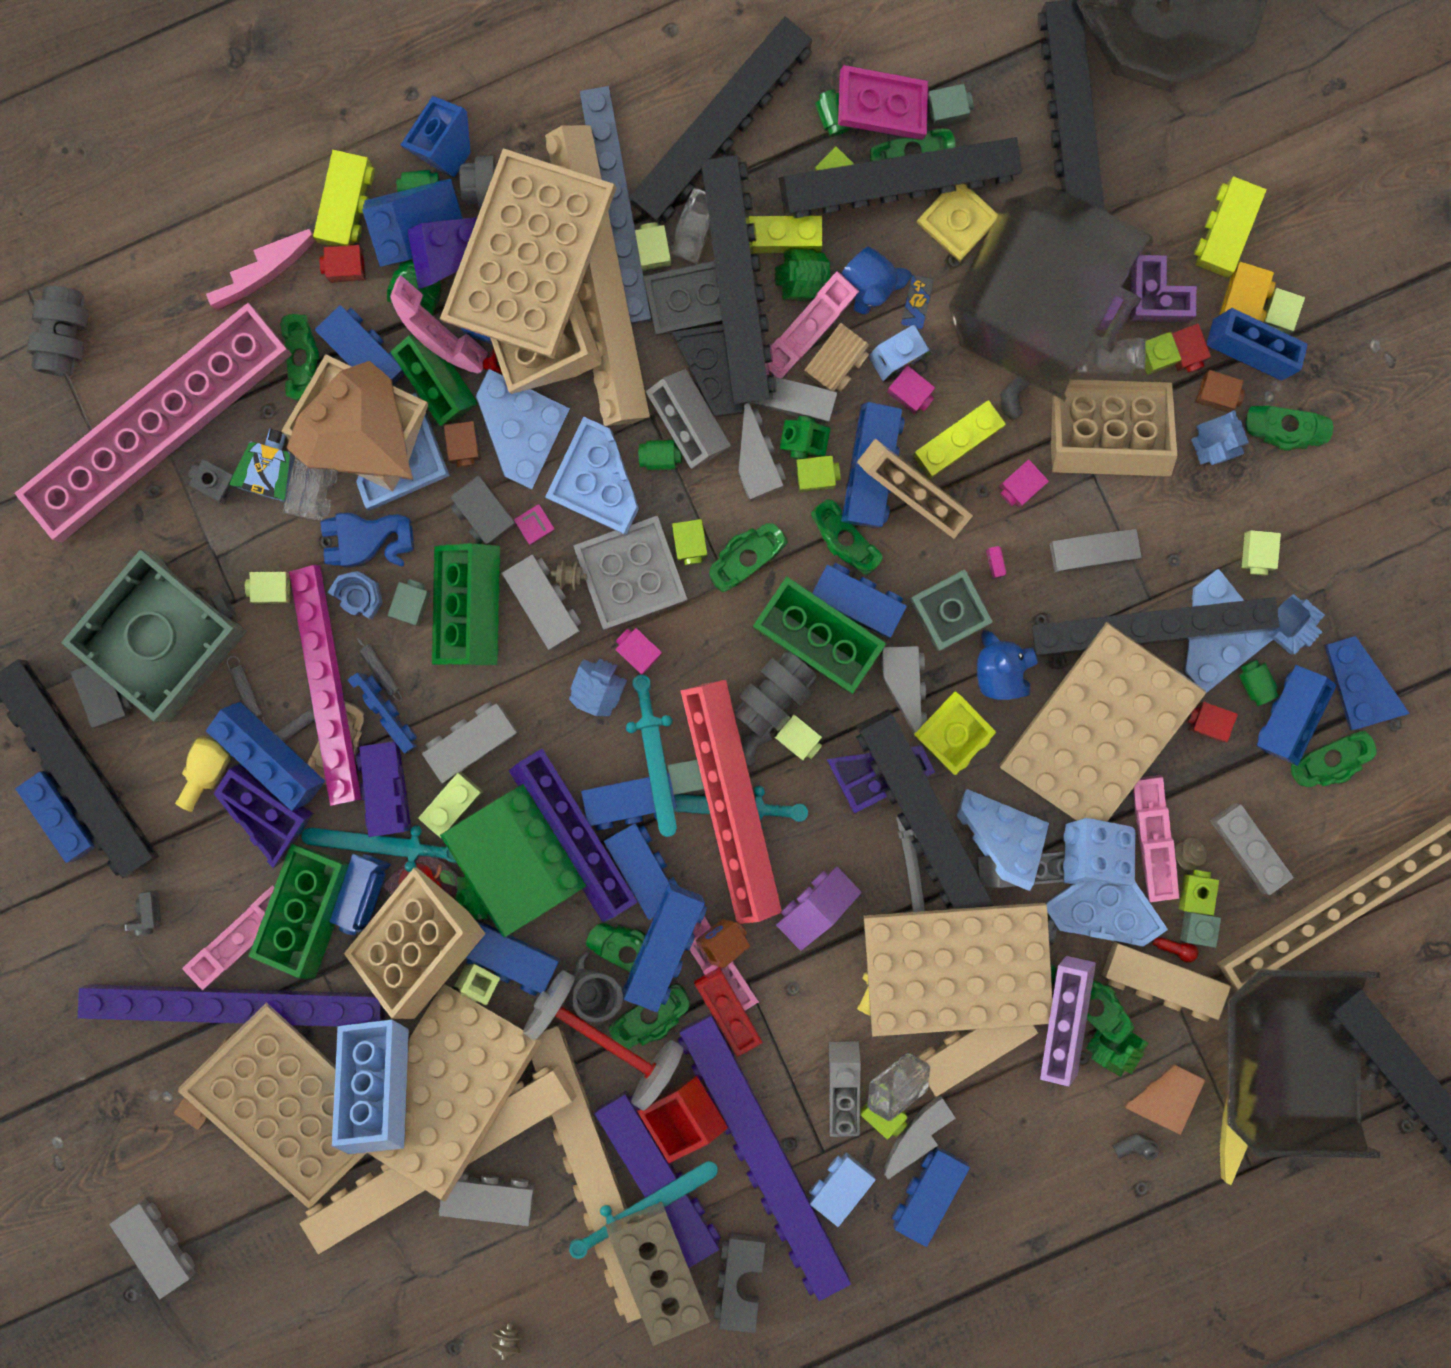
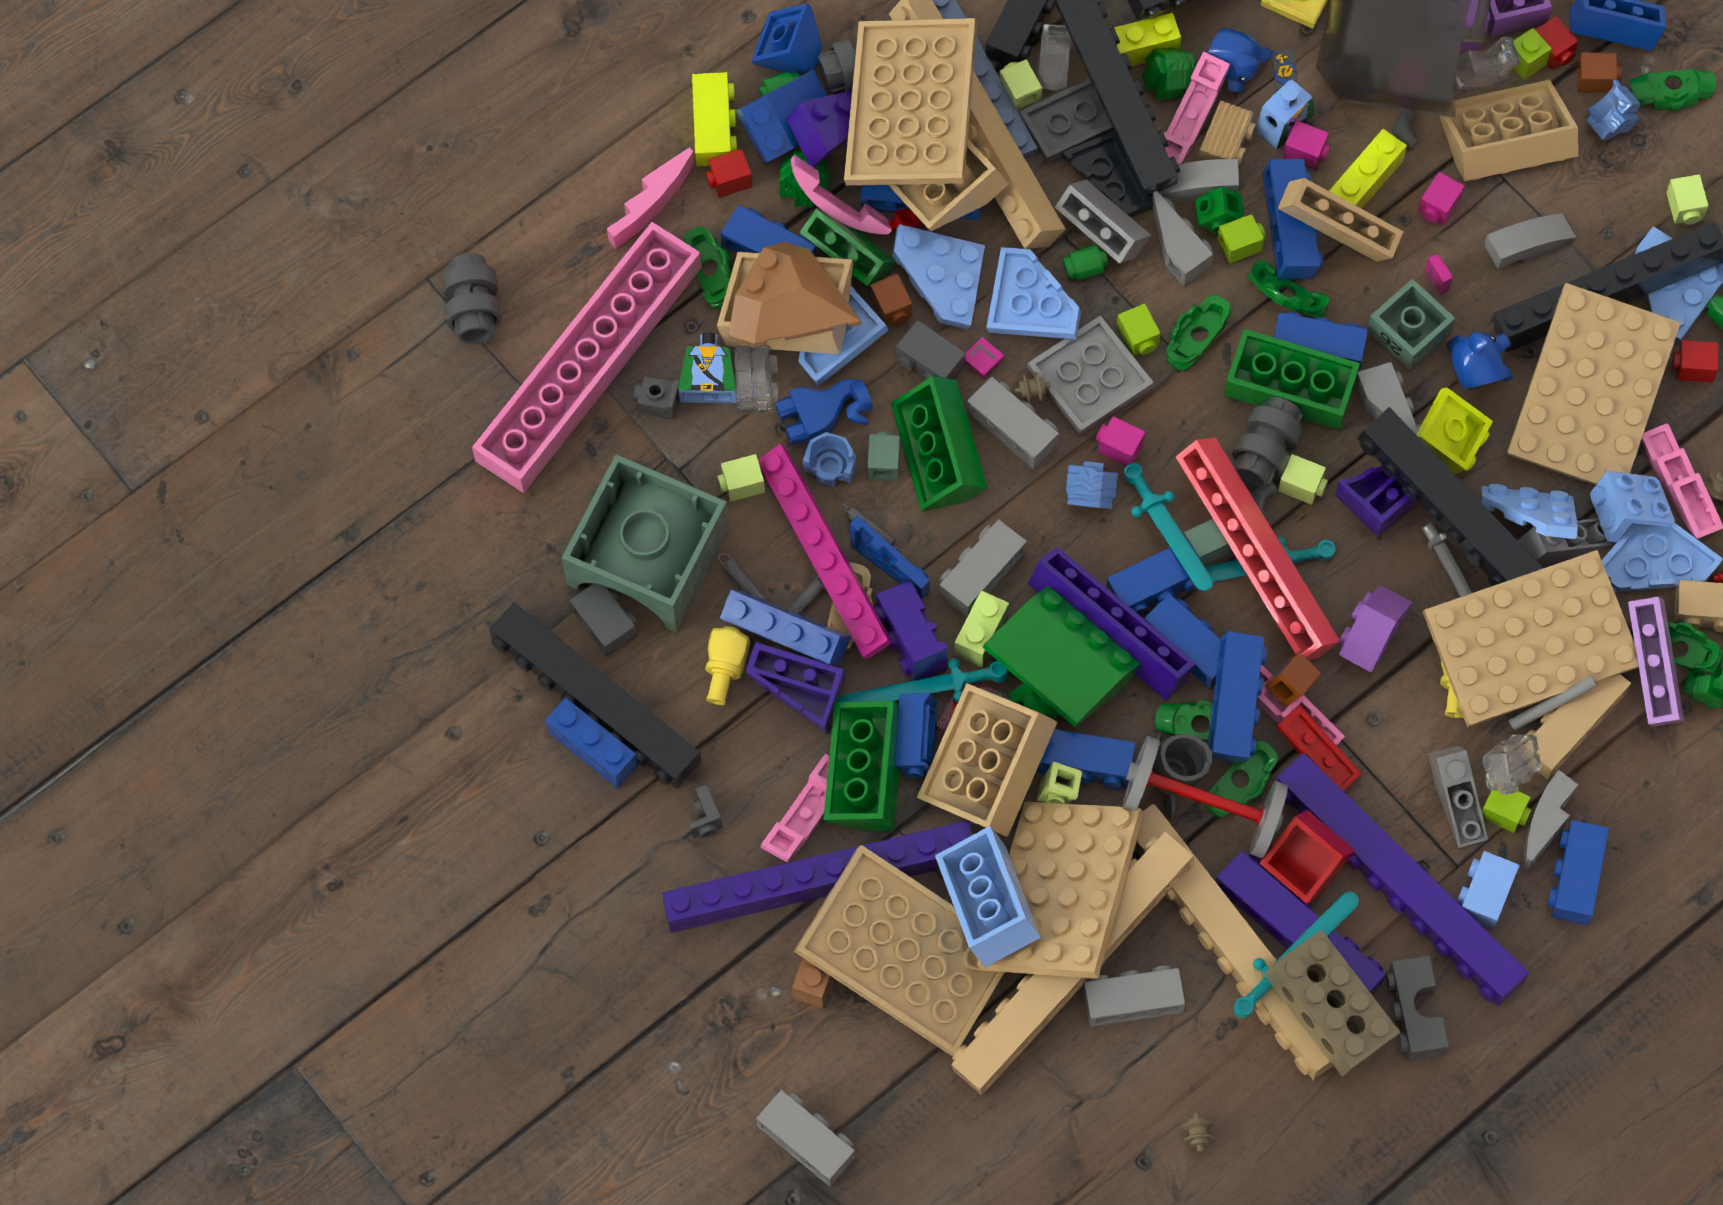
camera: 15 degrees left, 20 degrees down
(976, 1032) = (1552, 703): none -> light grey bar

